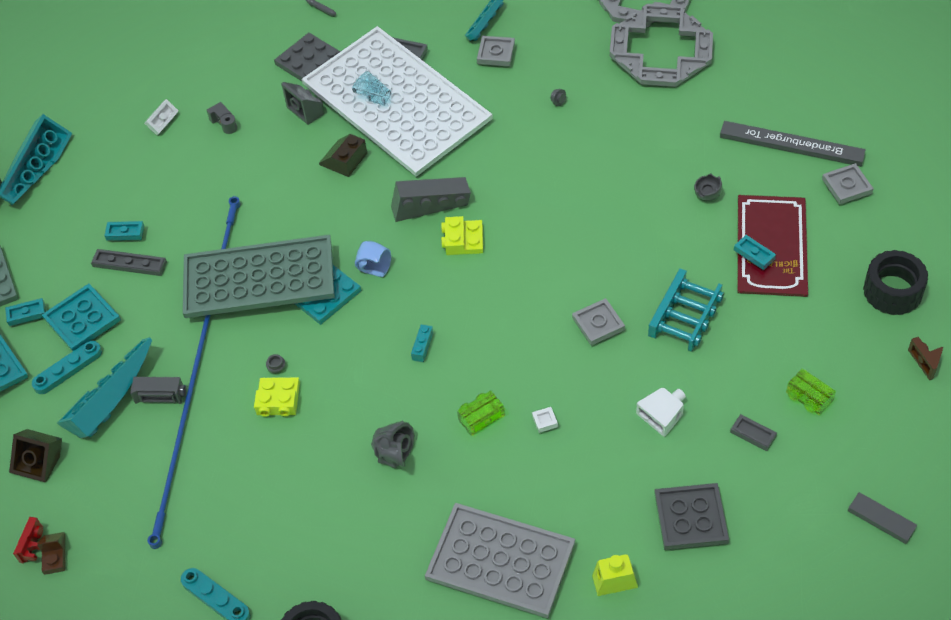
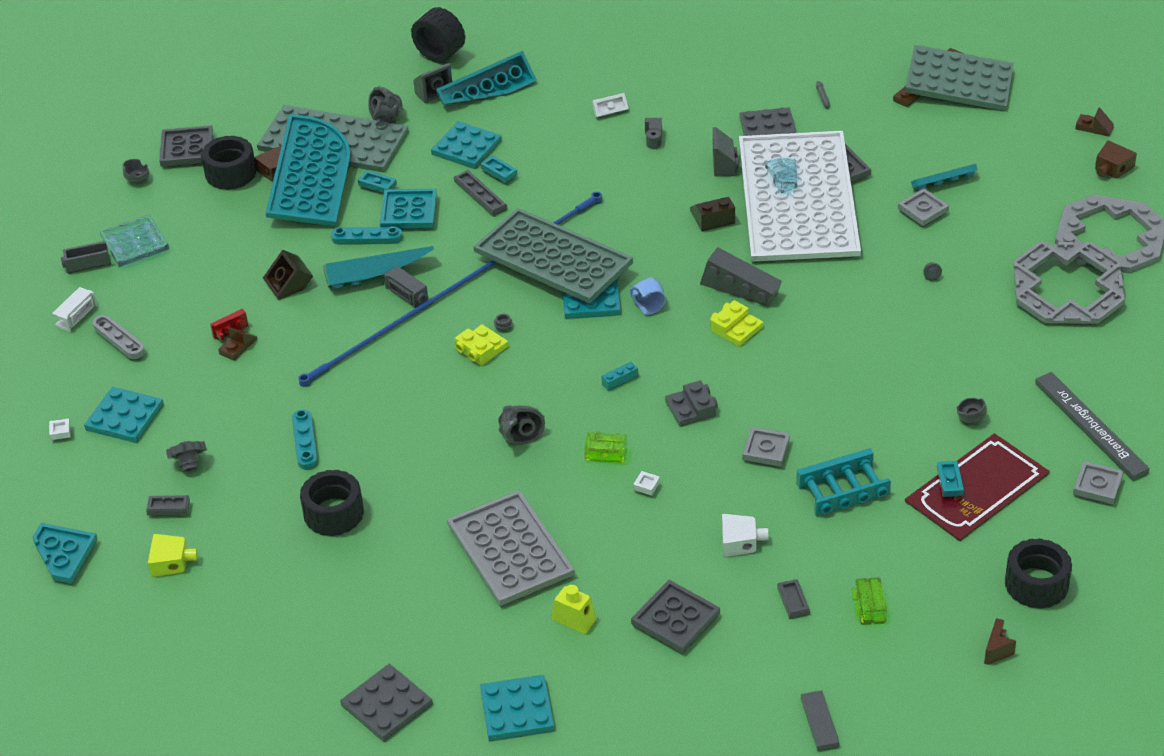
camera: 40 degrees right, 10 degrees down
(69, 227) = (466, 145): none -> teal plate
(503, 326) = (692, 403): none -> dark grey plate

